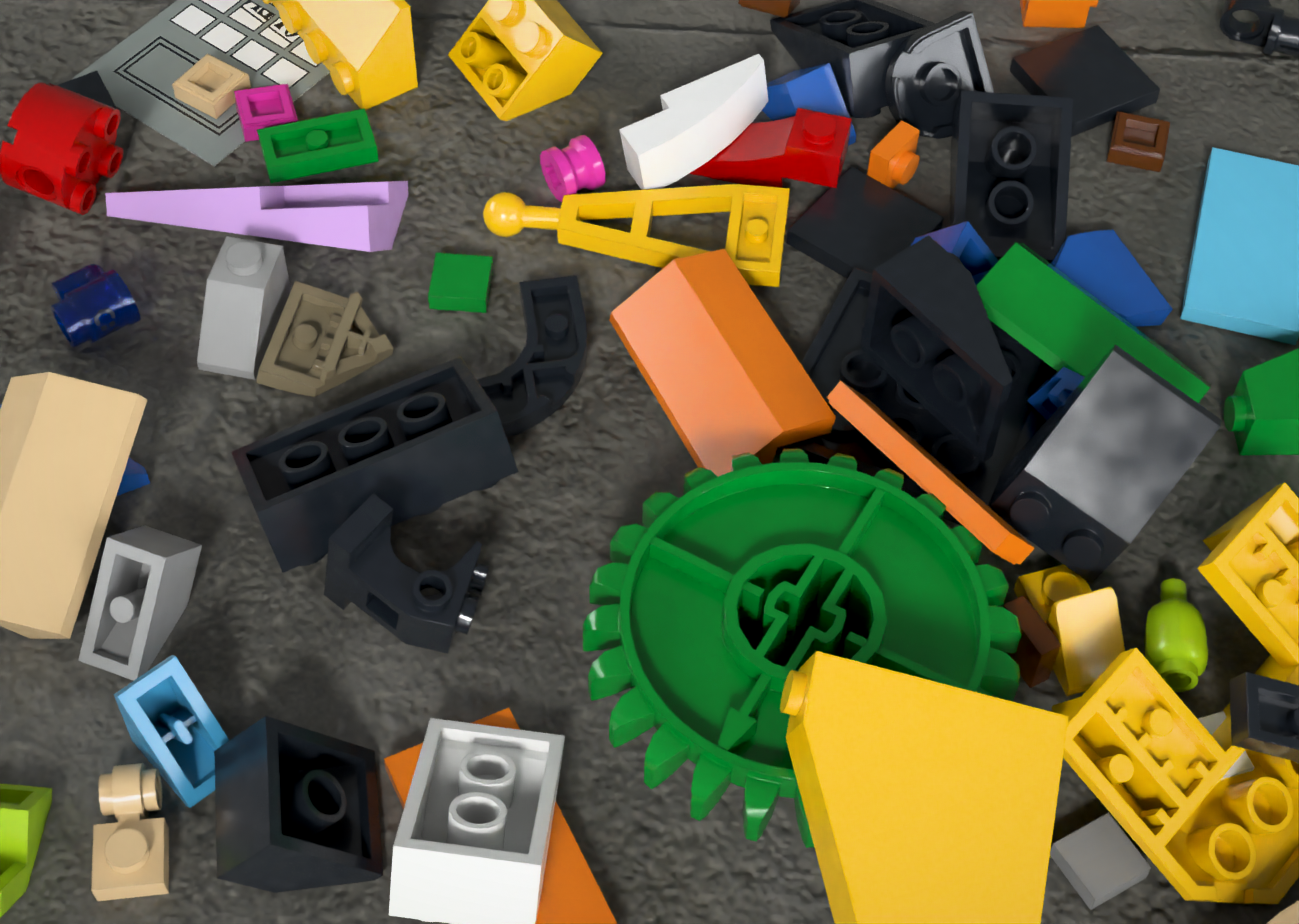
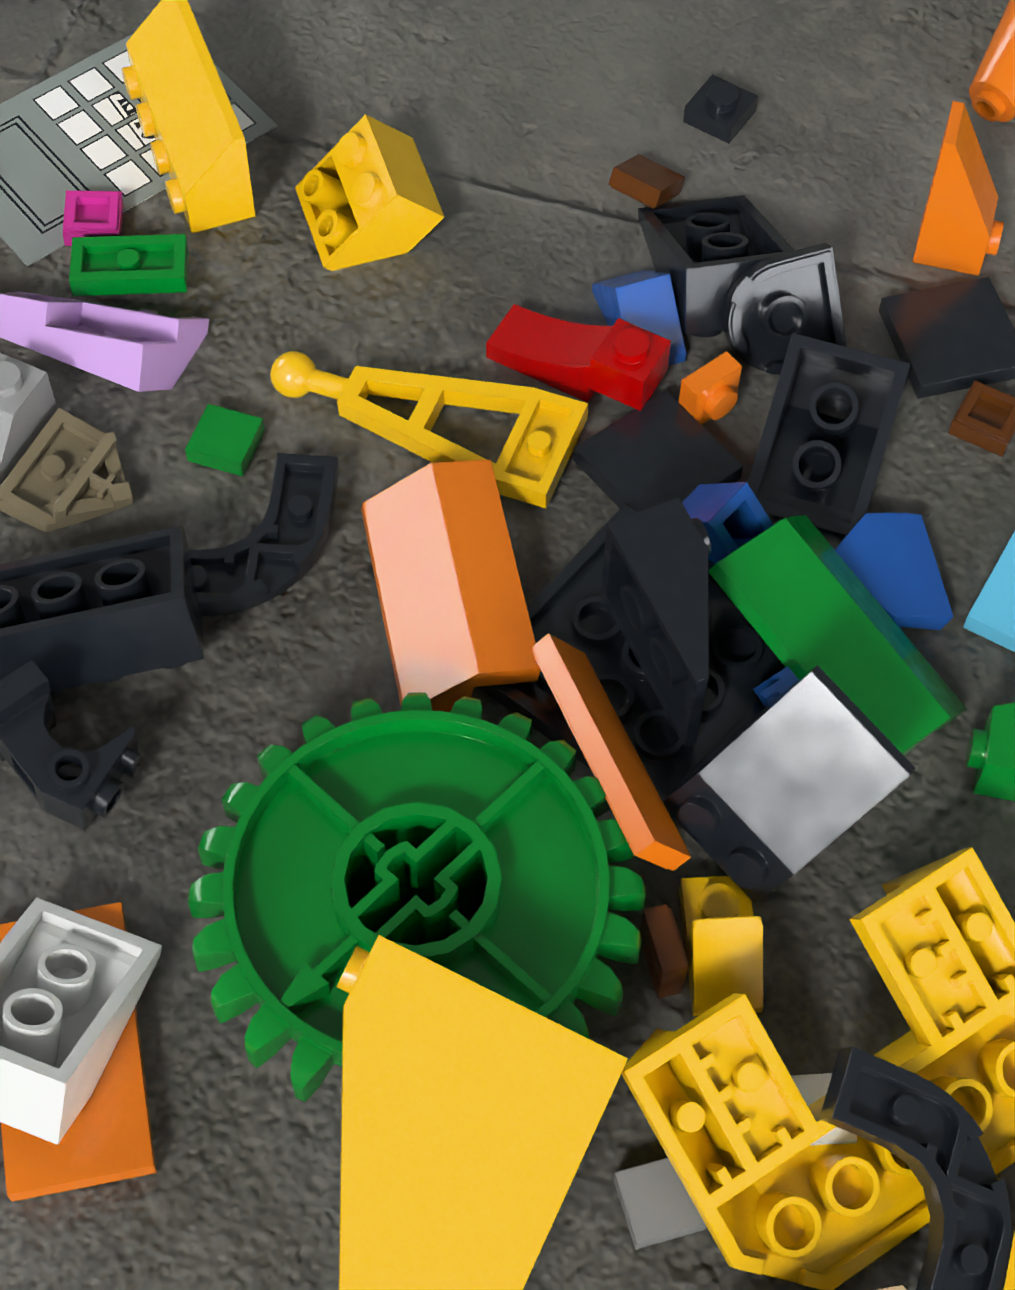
camera: 15 degrees right, 5 degrees up
(210, 86) = (46, 179): tan tile -> none
(572, 167) = (374, 337): dark pink wheel -> none
(694, 123) = (511, 314): white slope -> none
(1176, 637) = (821, 983): lime plant -> none

